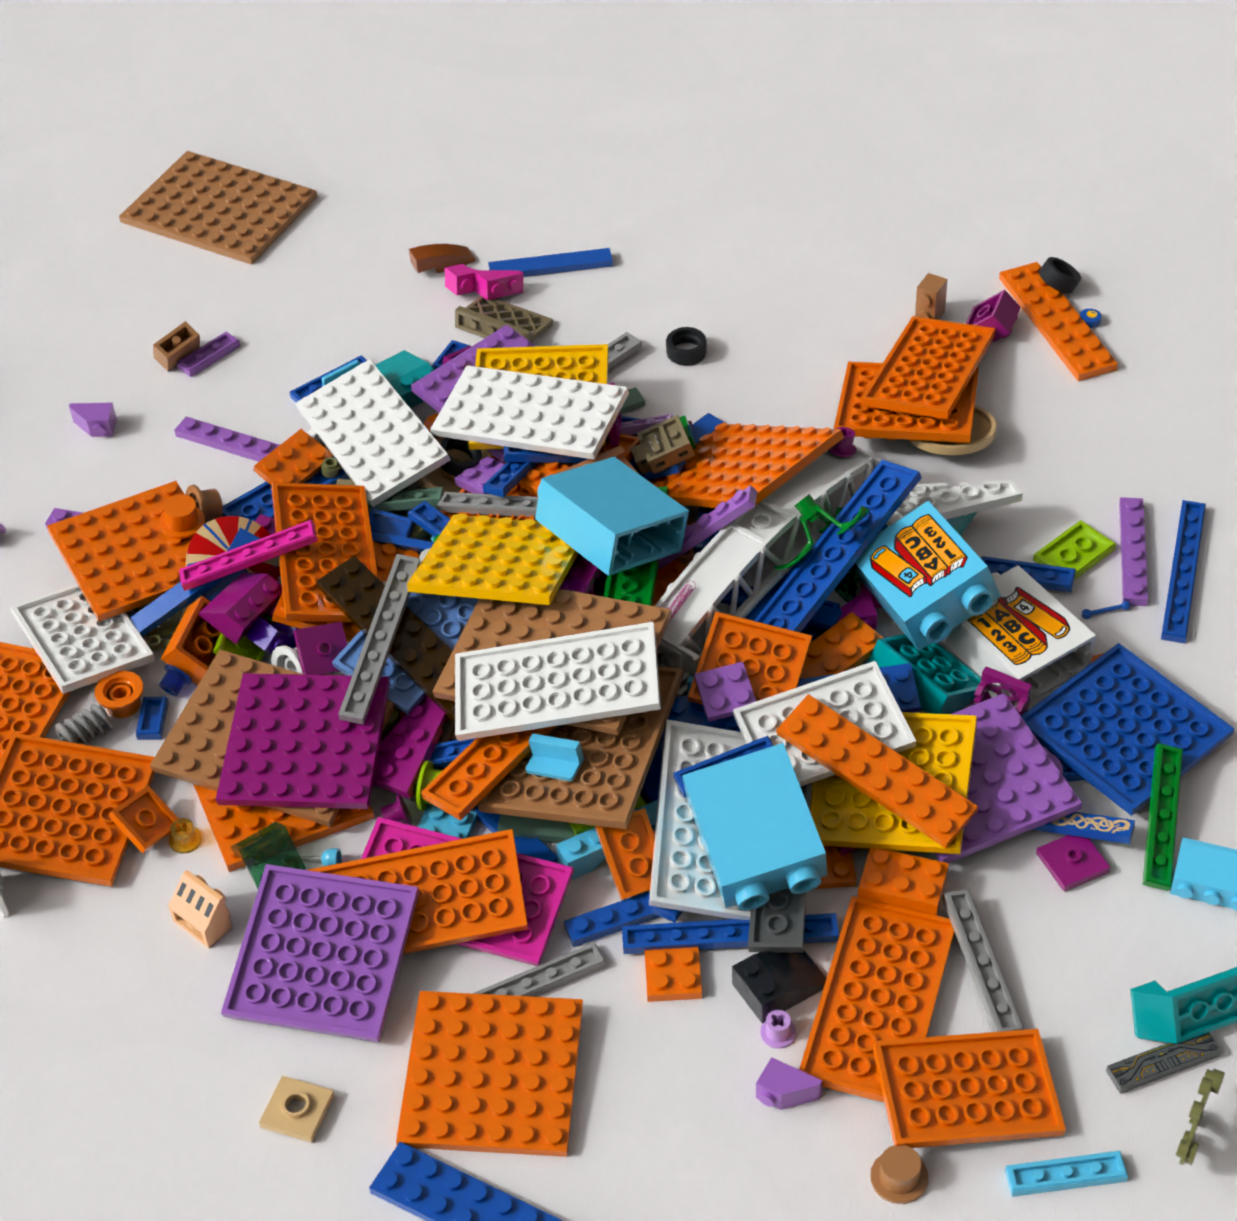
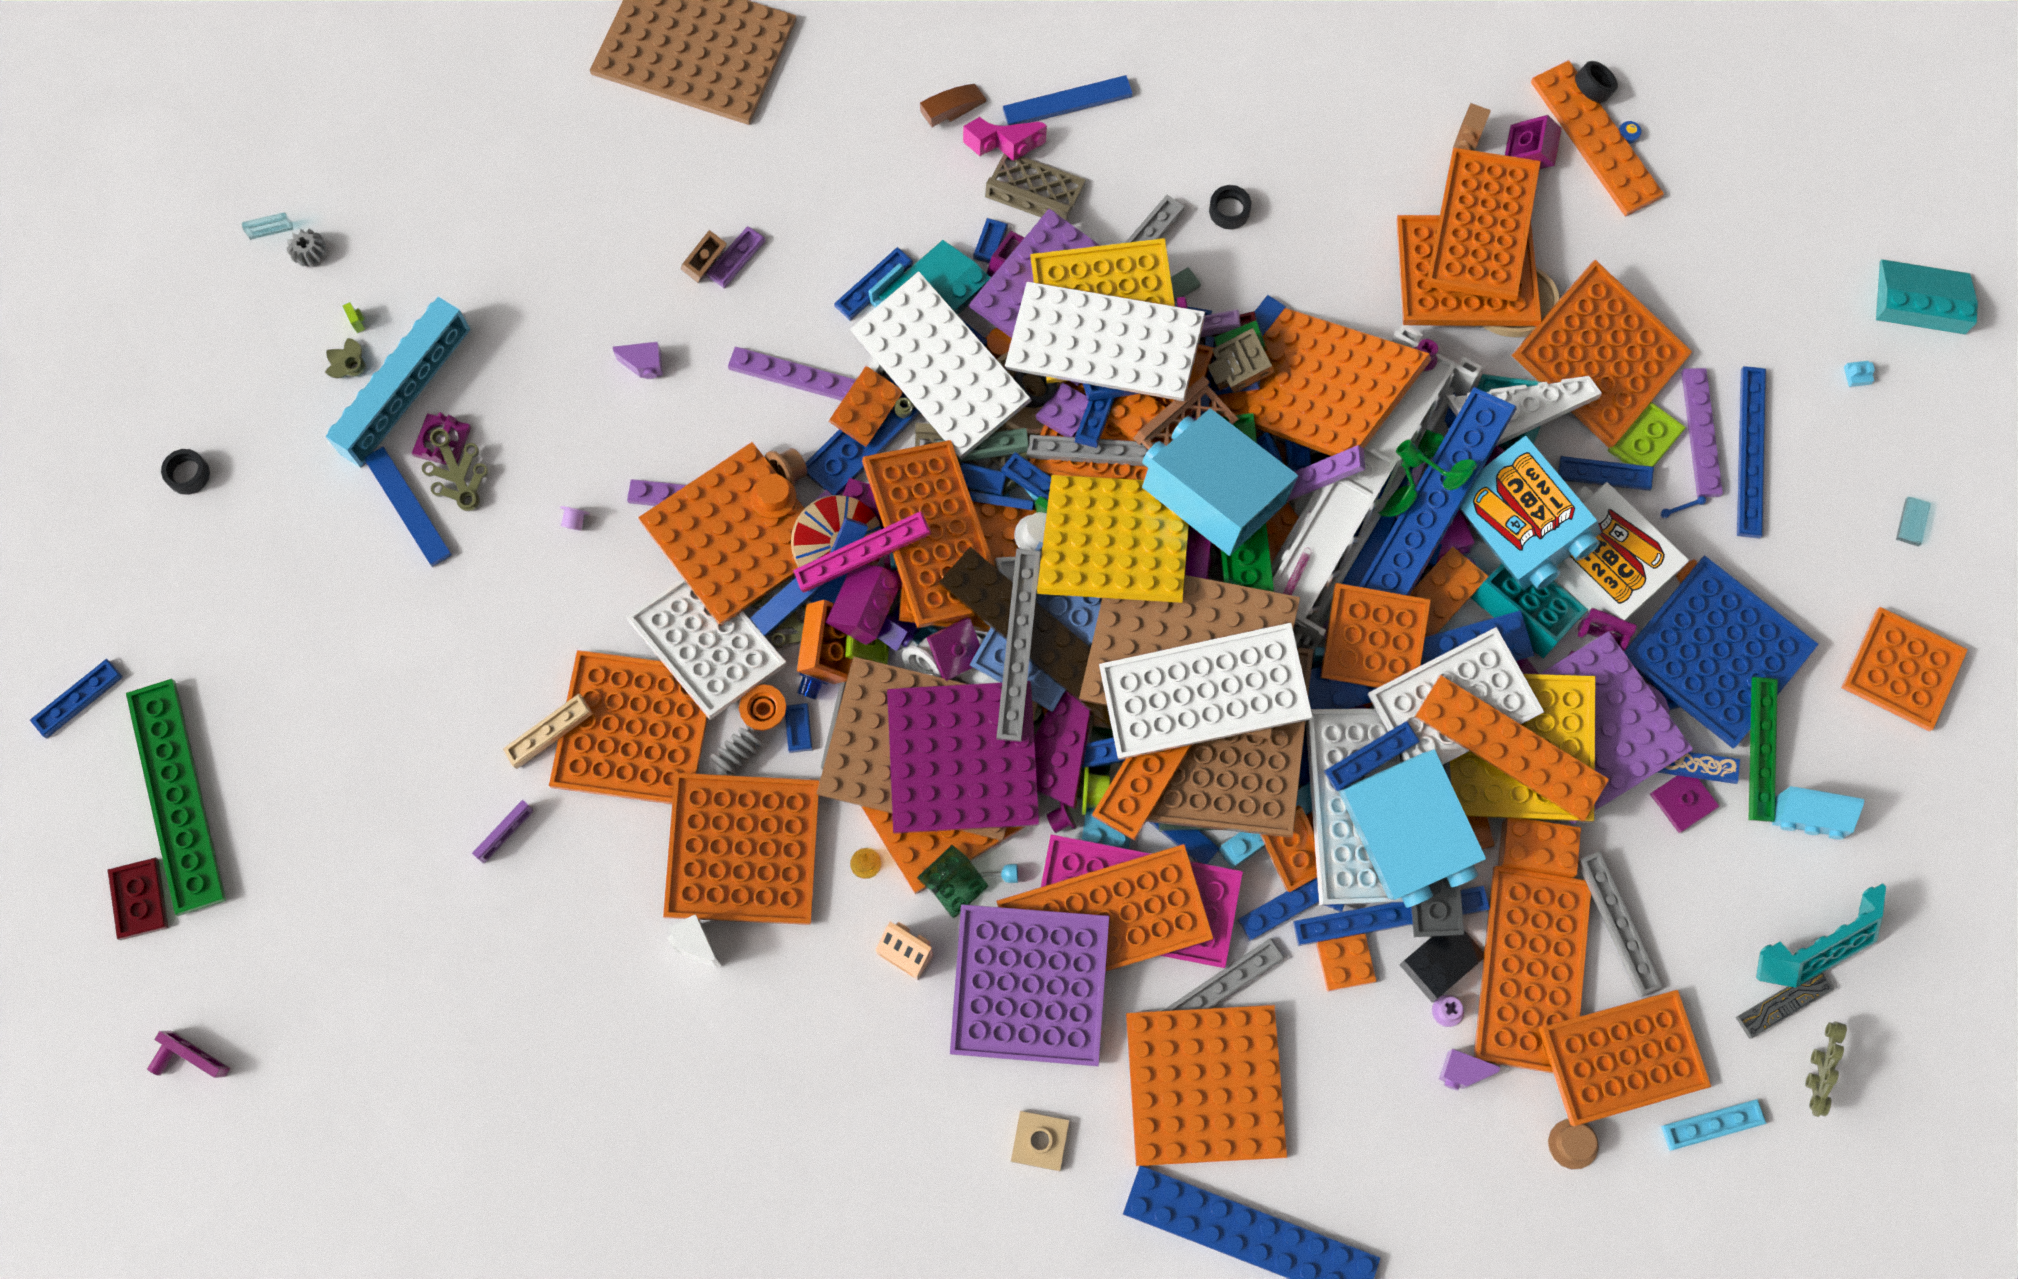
camera: 10 degrees left, 25 degrees up
(144, 819) = (827, 853): orange plate -> none
(554, 757) = (1211, 767): medium azure panel -> none
(724, 690) = (1357, 670): medium lavender plate -> none
(1047, 461) = (1614, 341): none -> orange plate

